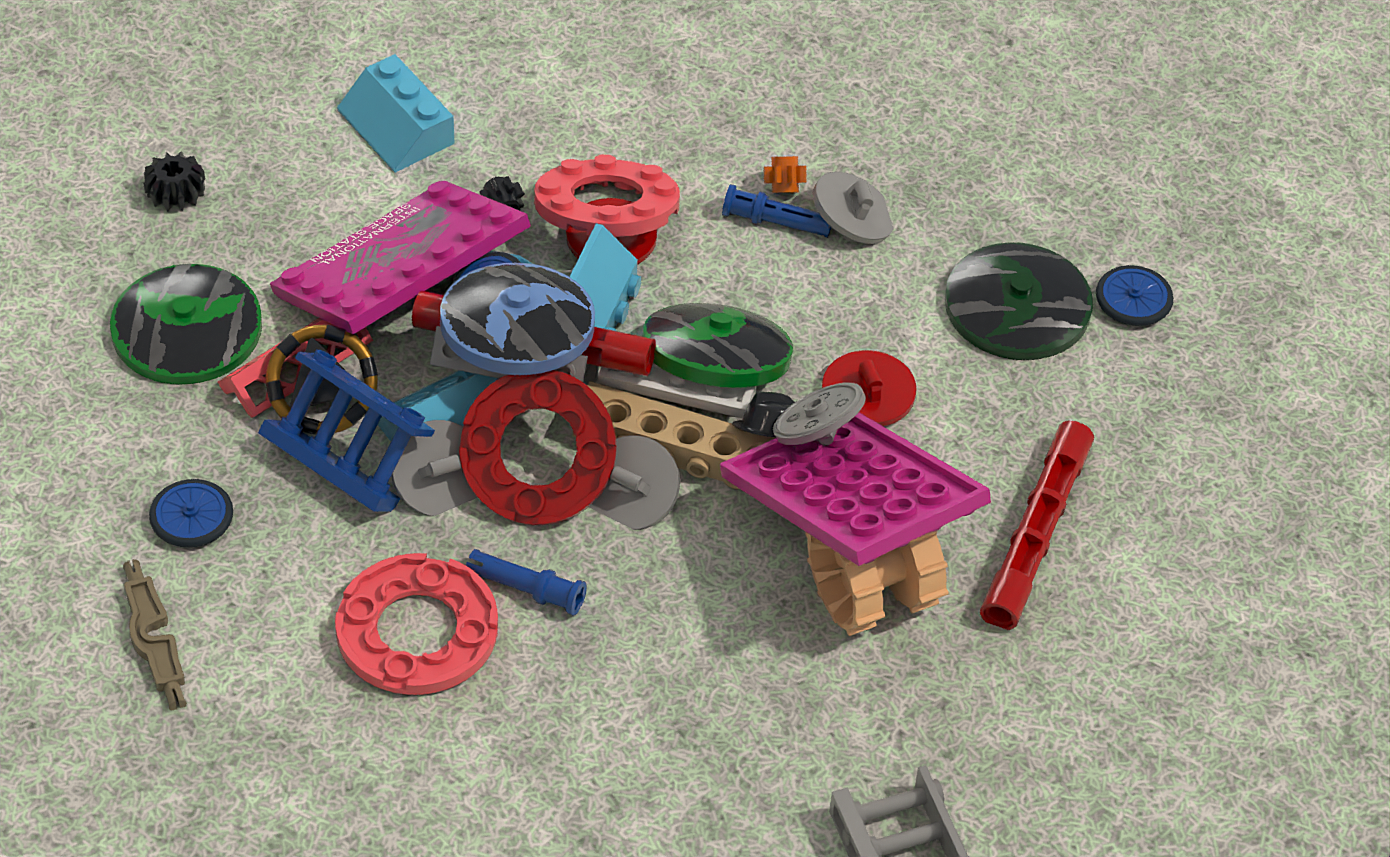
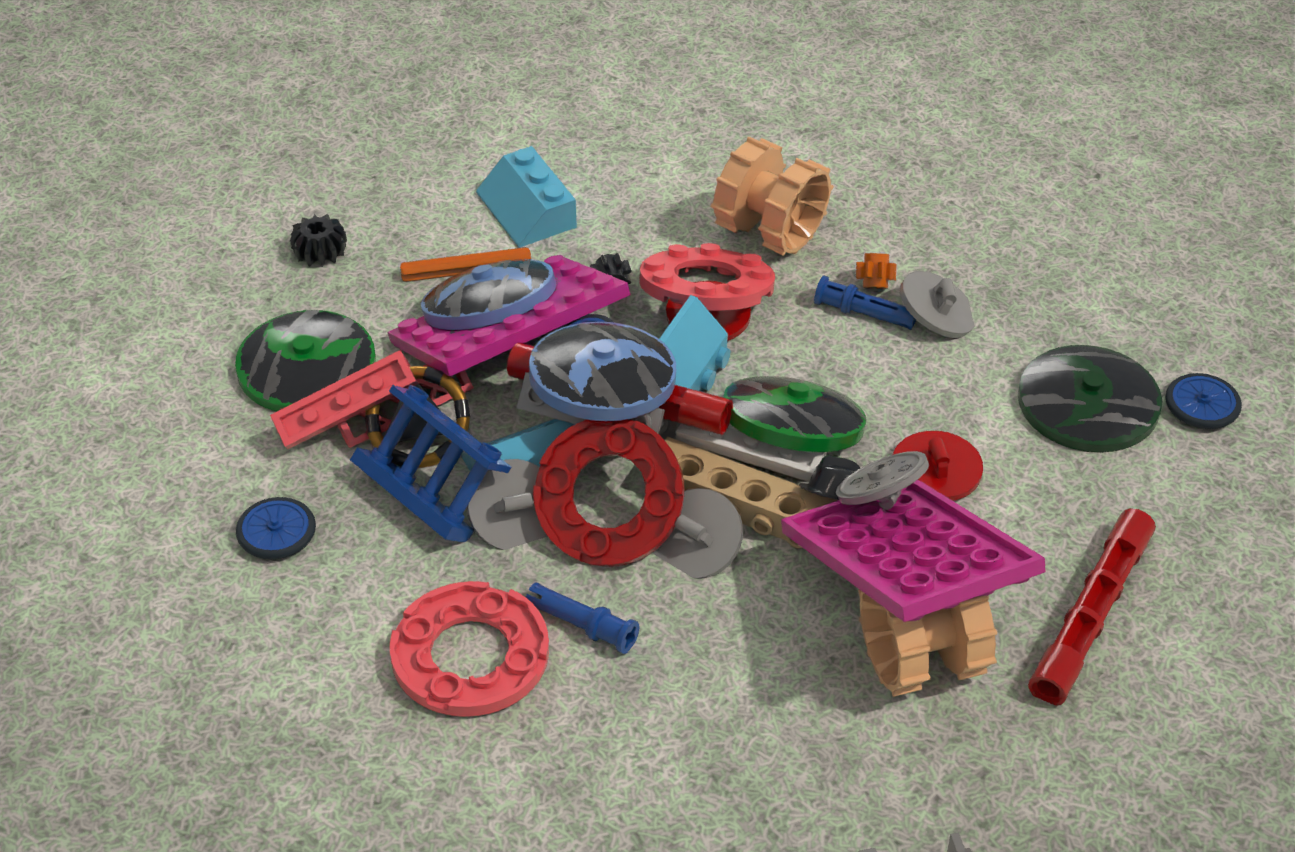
camera: 10 degrees right, 5 degrees down
(159, 650) = (219, 652): dark tan piece -> none
(242, 368) = (342, 399): none -> coral fence
(340, 197) = (456, 264): none -> orange axle
(375, 234) = (488, 294): none -> dish
(647, 91) = (757, 189): none -> light nougat piece

